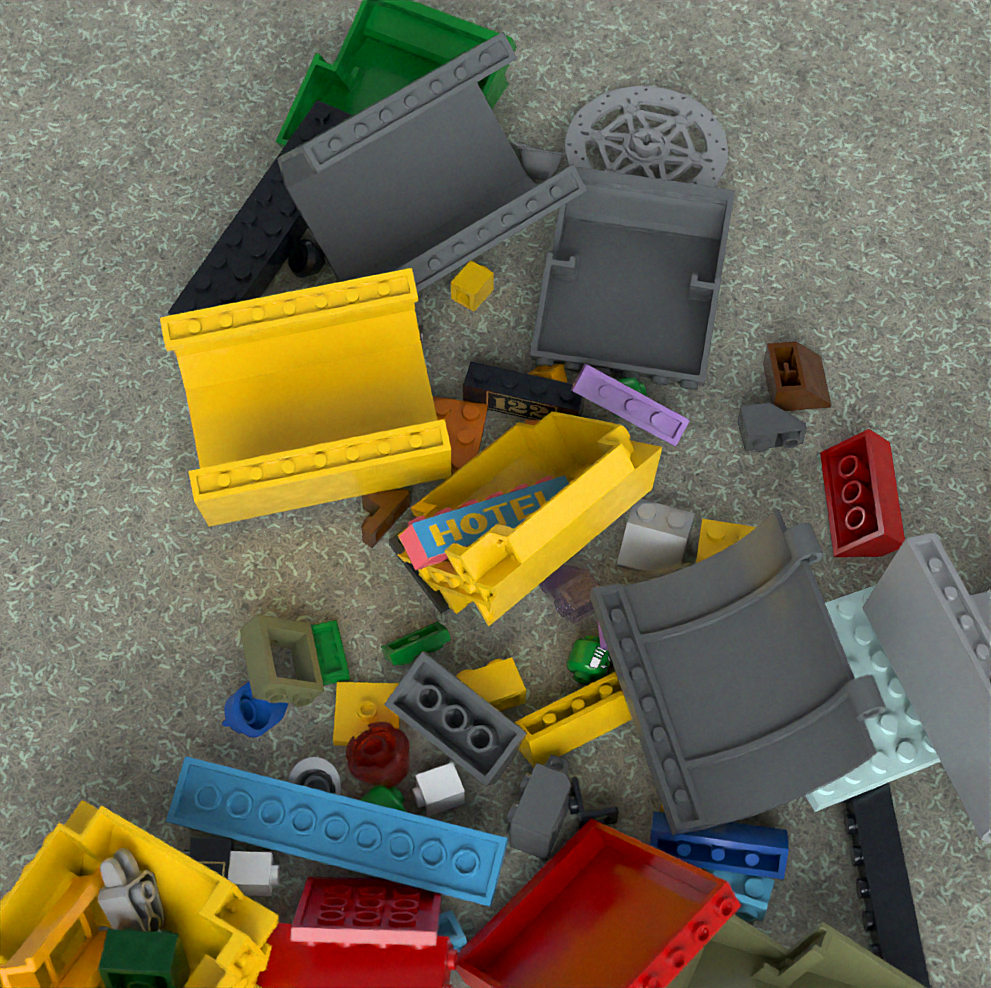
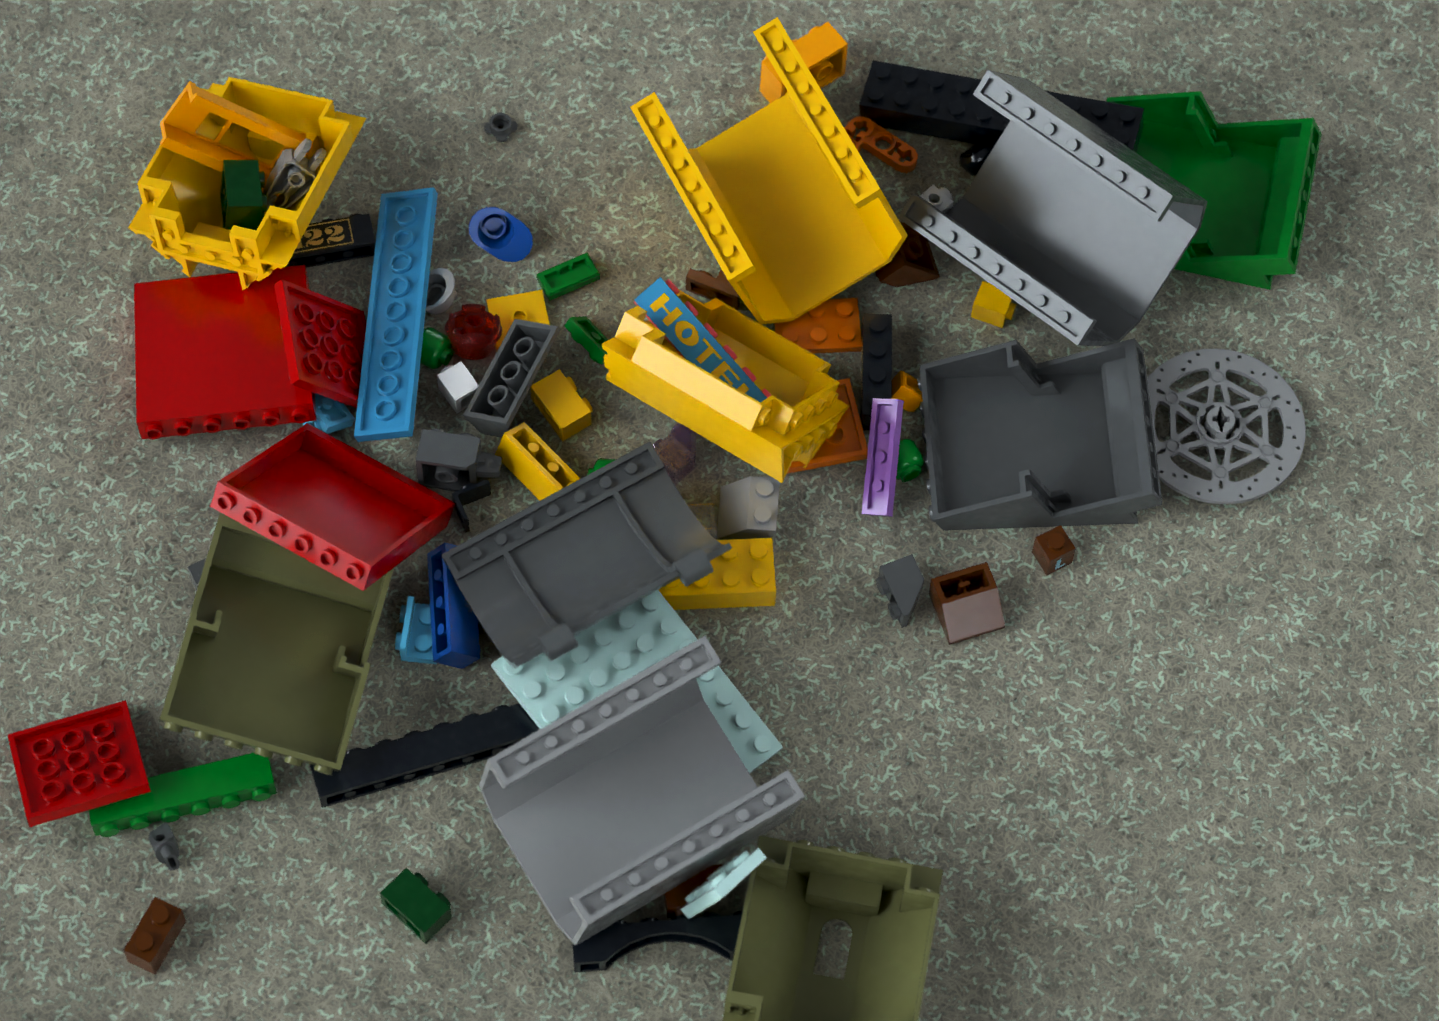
camera: 75 degrees right, 5 degrees up
(107, 675) = (497, 120): none -> dark grey plate
(150, 375) = (822, 52): none -> light orange brick
(253, 872) = (353, 268): white brick -> none
(295, 635) = (569, 229): olive window -> none
(538, 162) = (1172, 327): light grey piece -> none
(751, 298) = (1053, 550): none -> reddish brown brick
(862, 497) = (847, 683): red slope -> none

